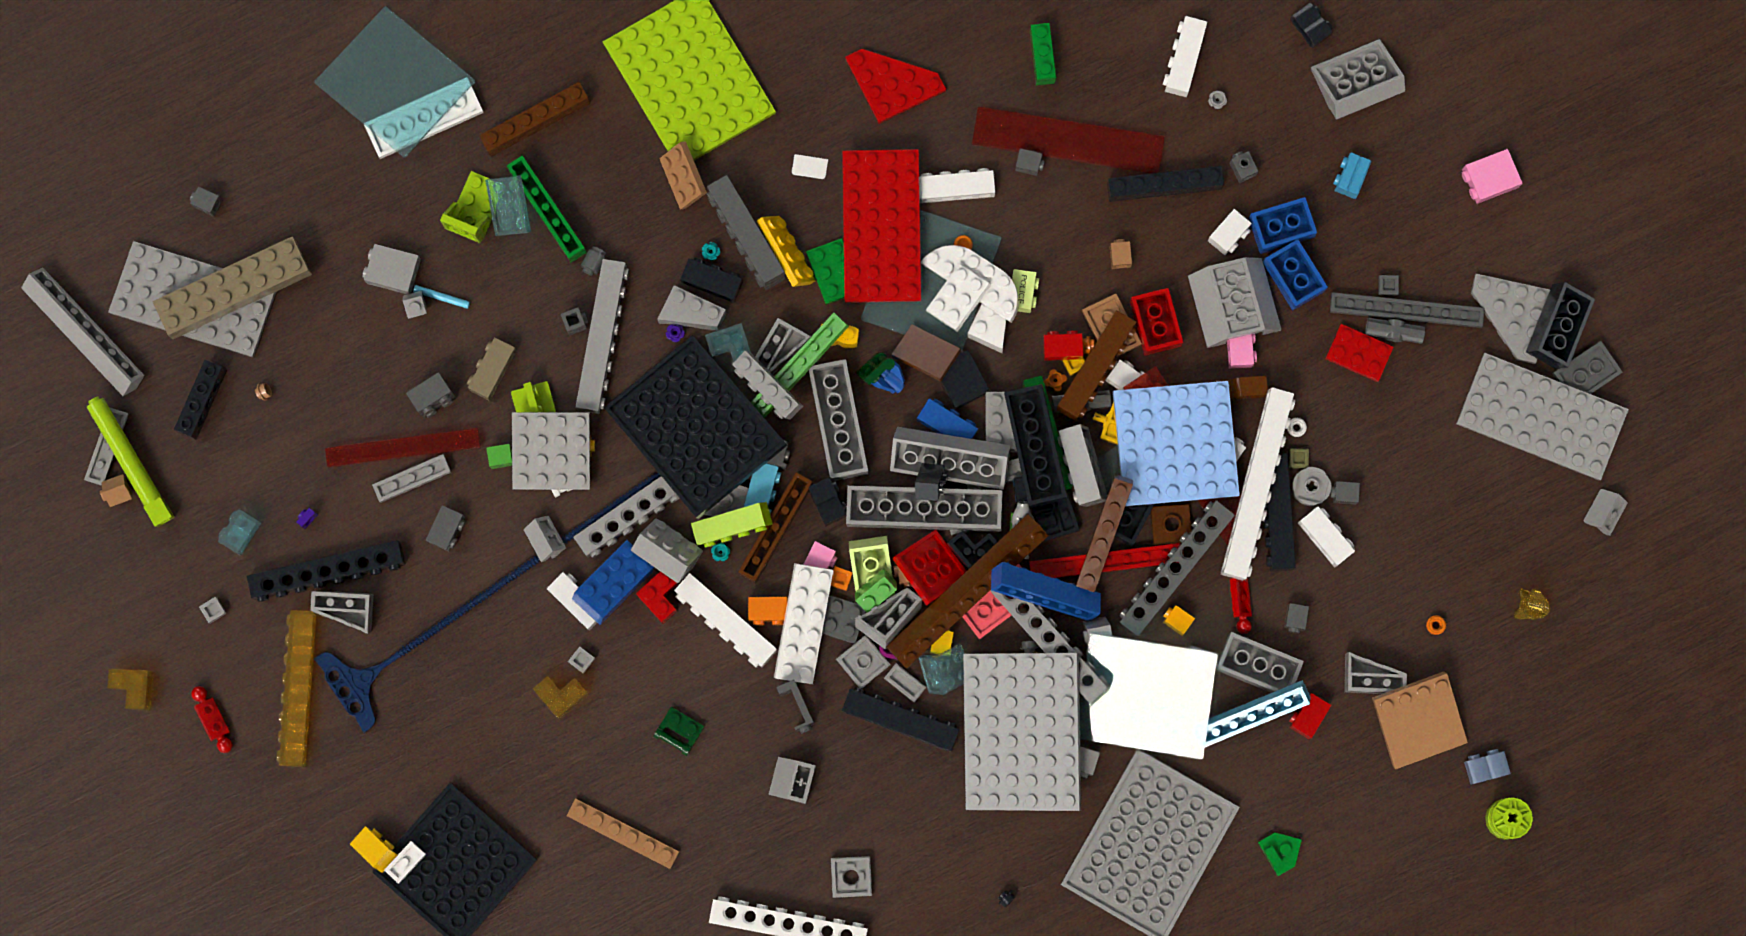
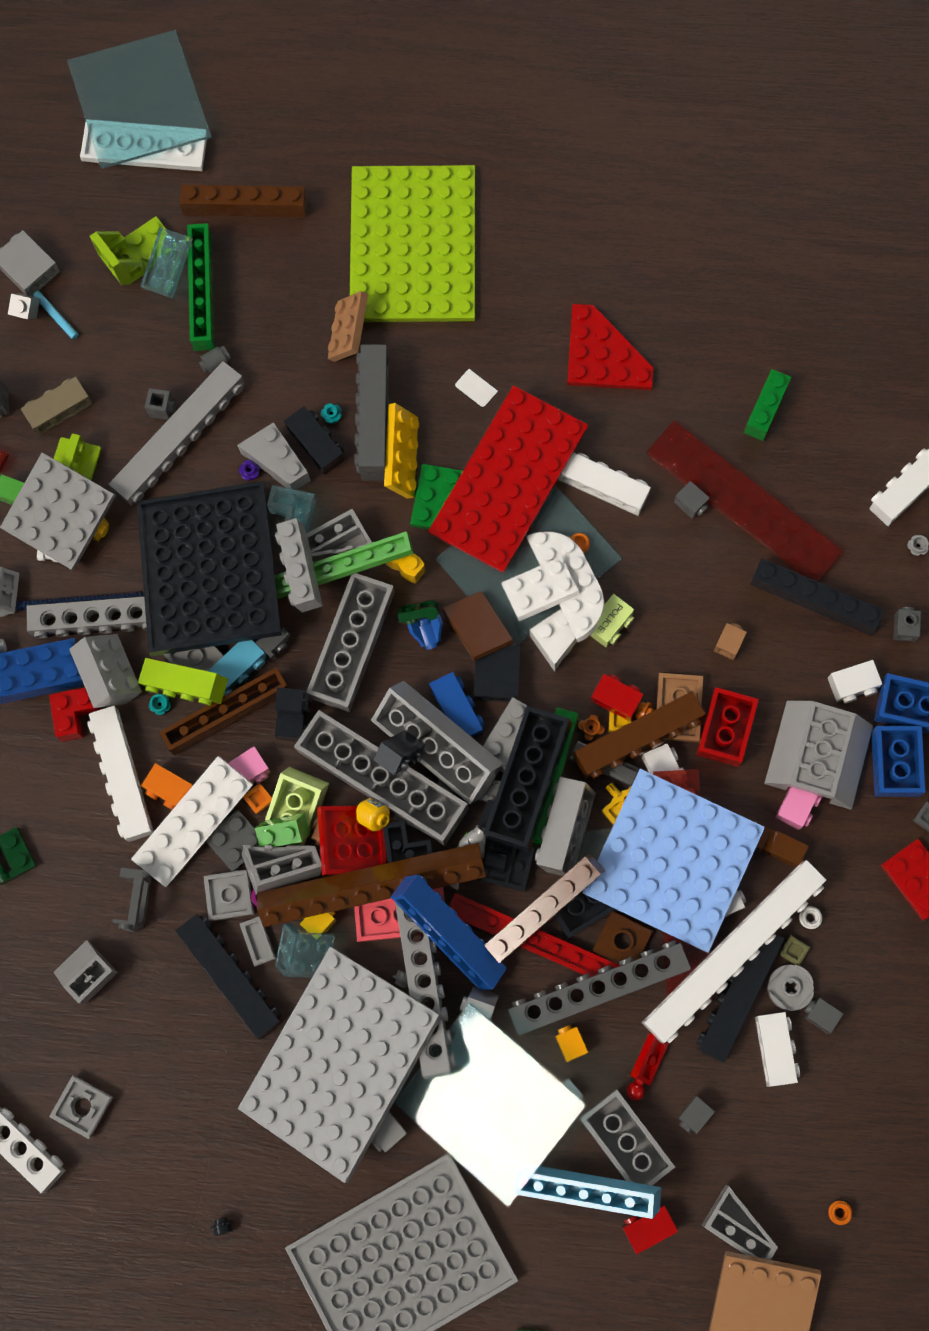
camera: 35 degrees right, 5 degrees down
(936, 539) = (373, 814): none -> yellow head

